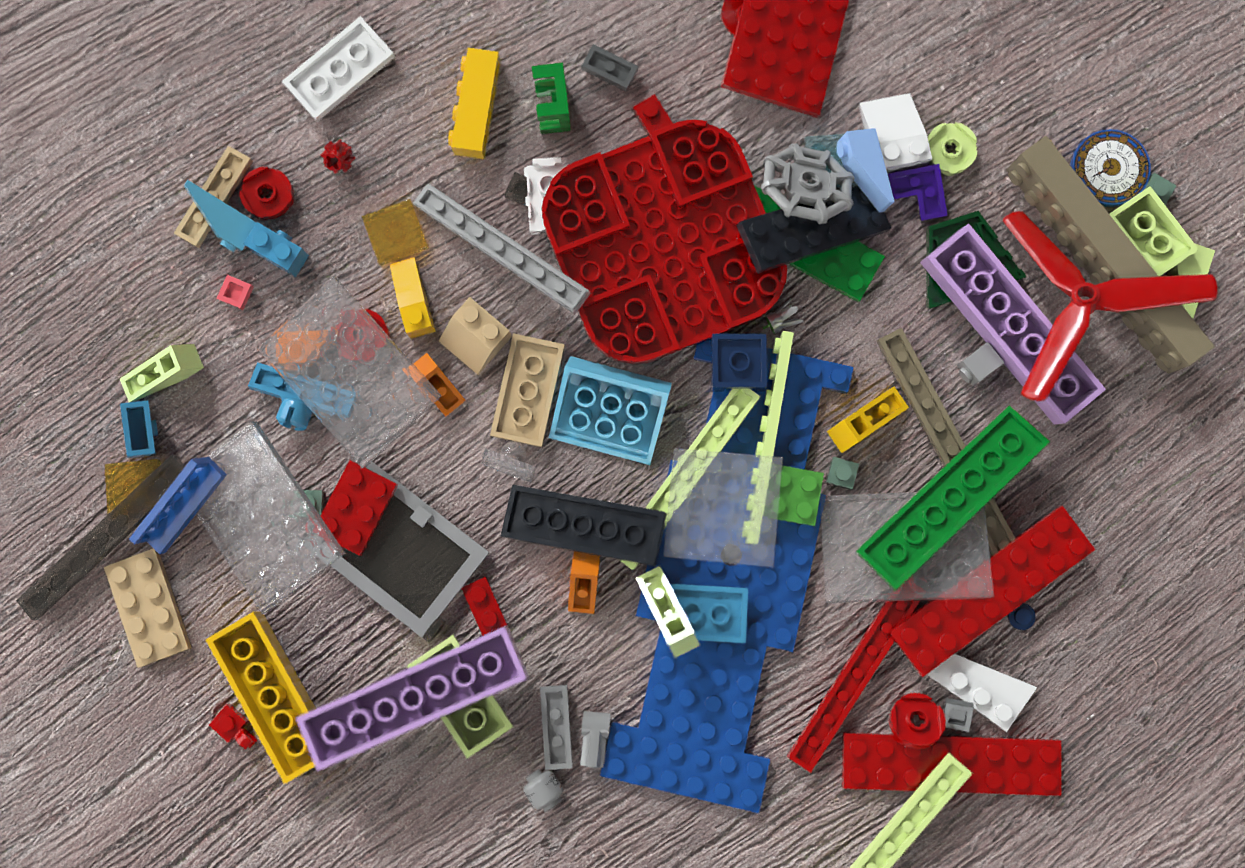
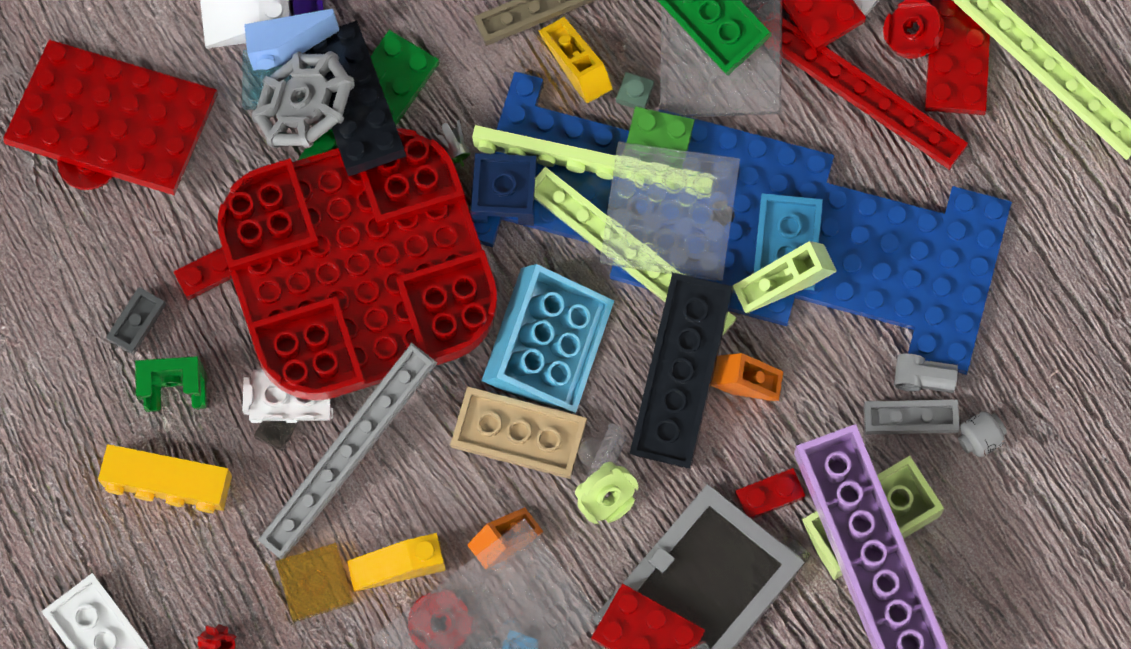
camera: 85 degrees left, 10 degrees down
(473, 466) = (607, 479): none -> yellowish green plate
(474, 336) = (449, 490): tan slope -> none

